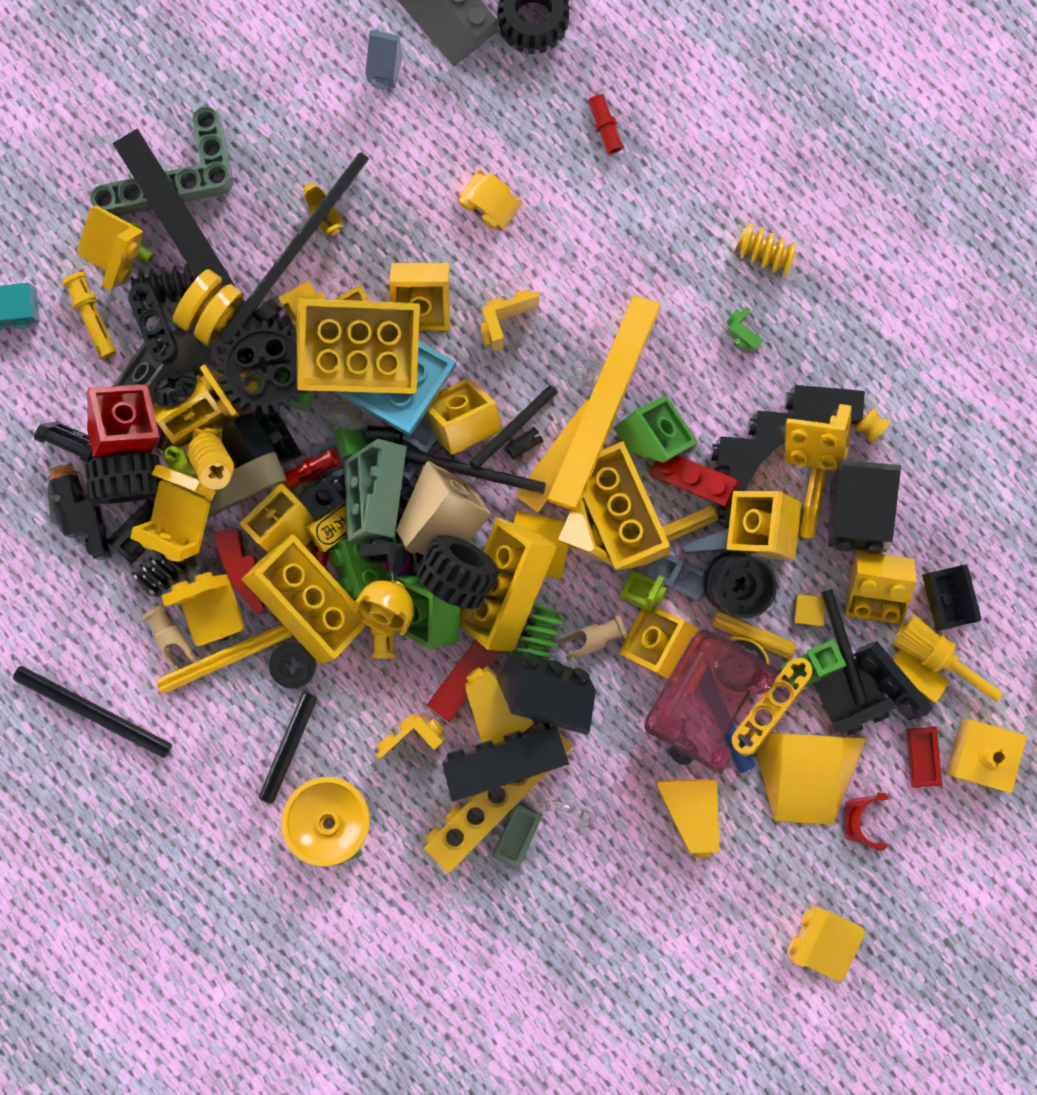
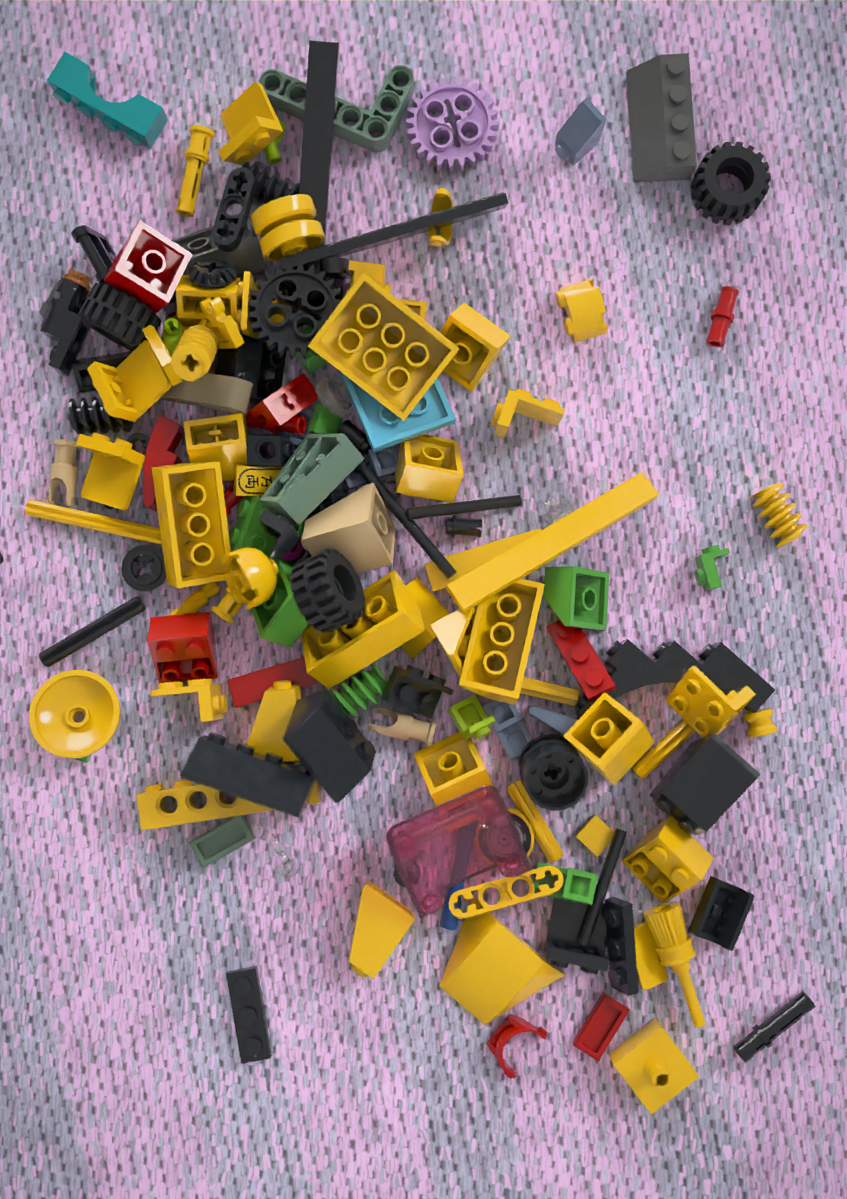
camera: 40 degrees right, 0 degrees up
(213, 423) = (222, 325): none -> yellow plate
(290, 107) = (477, 119): none -> lavender gear
(309, 447) = (286, 402): none -> red hinge
(353, 664) = (197, 599): none -> yellow axle
(372, 705) = (183, 647): none -> red slope
(583, 602) = (413, 691): none -> black bracket
(641, 956) = (249, 1014): none -> black plate
(826, 943) = (406, 1118): yellow bracket -> none

